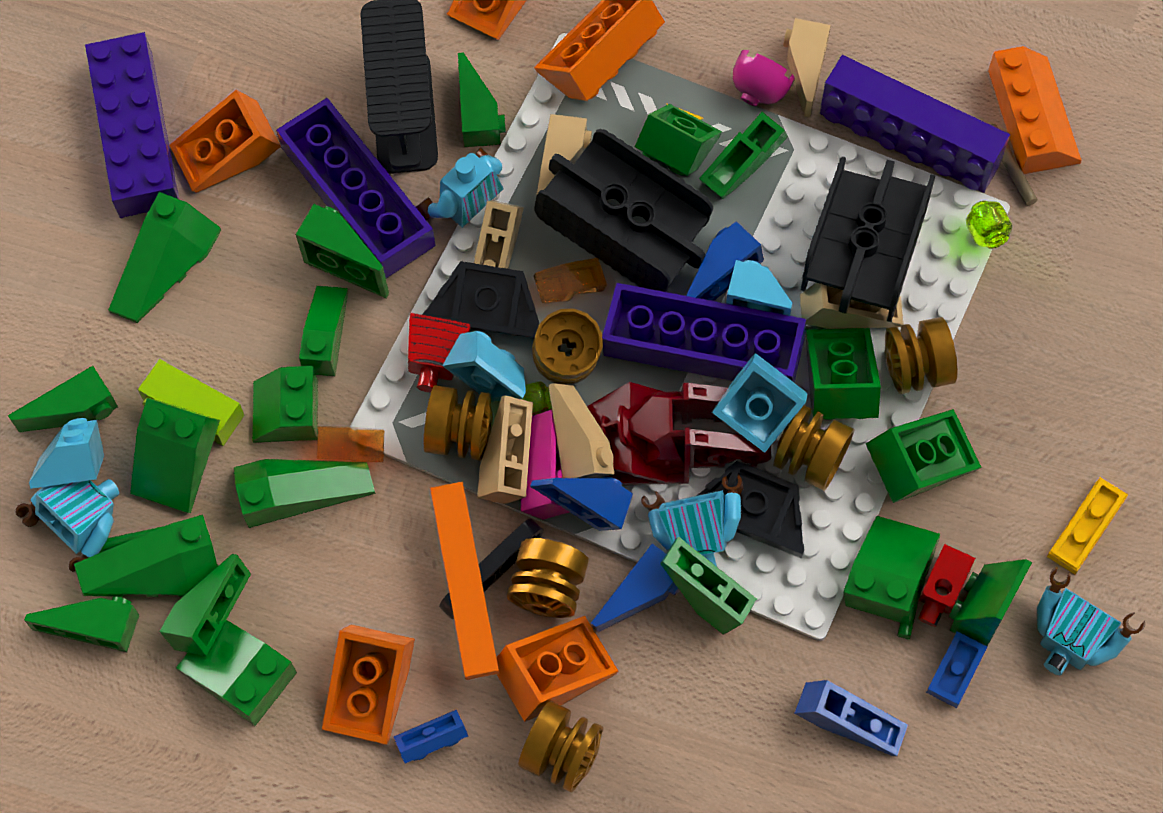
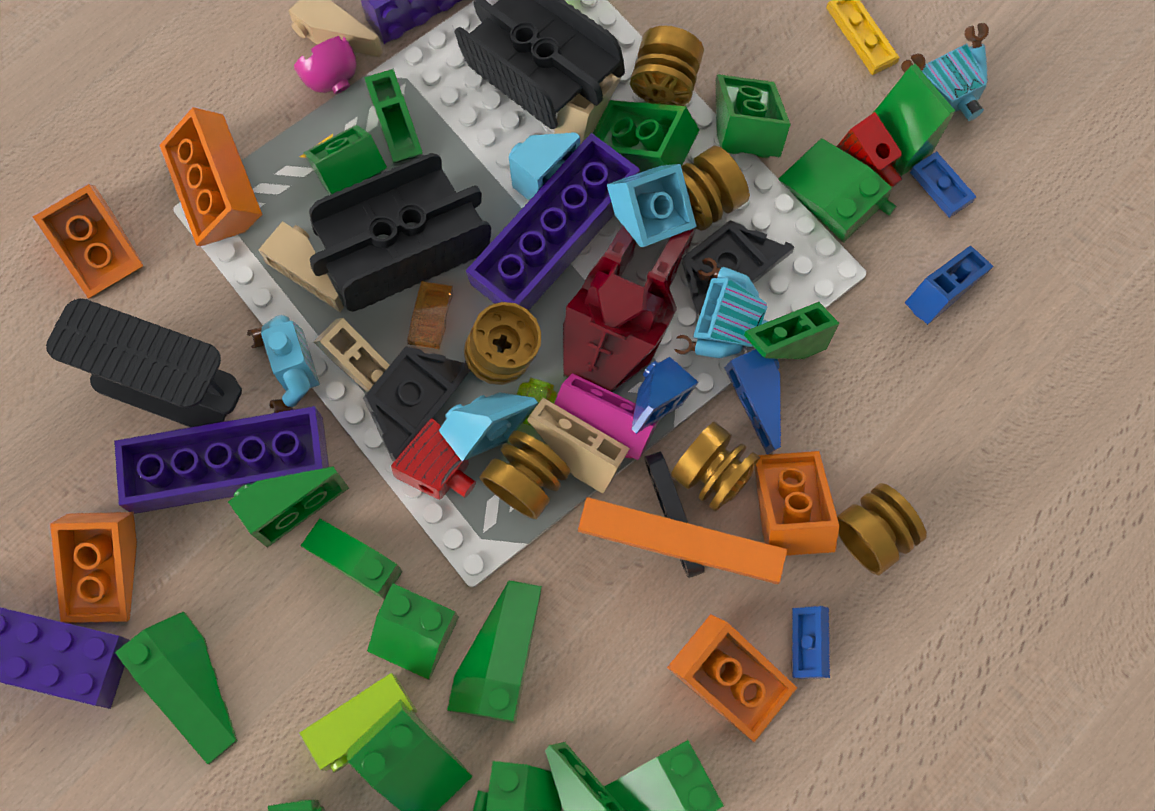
camera: 65 degrees left, 5 degrees up
(350, 444) = (483, 586): clear orange slope -> none
(478, 108) = (205, 313): green slope -> none
(580, 440) = (603, 373): tan slope -> none
(718, 265) = (485, 168): blue slope -> none

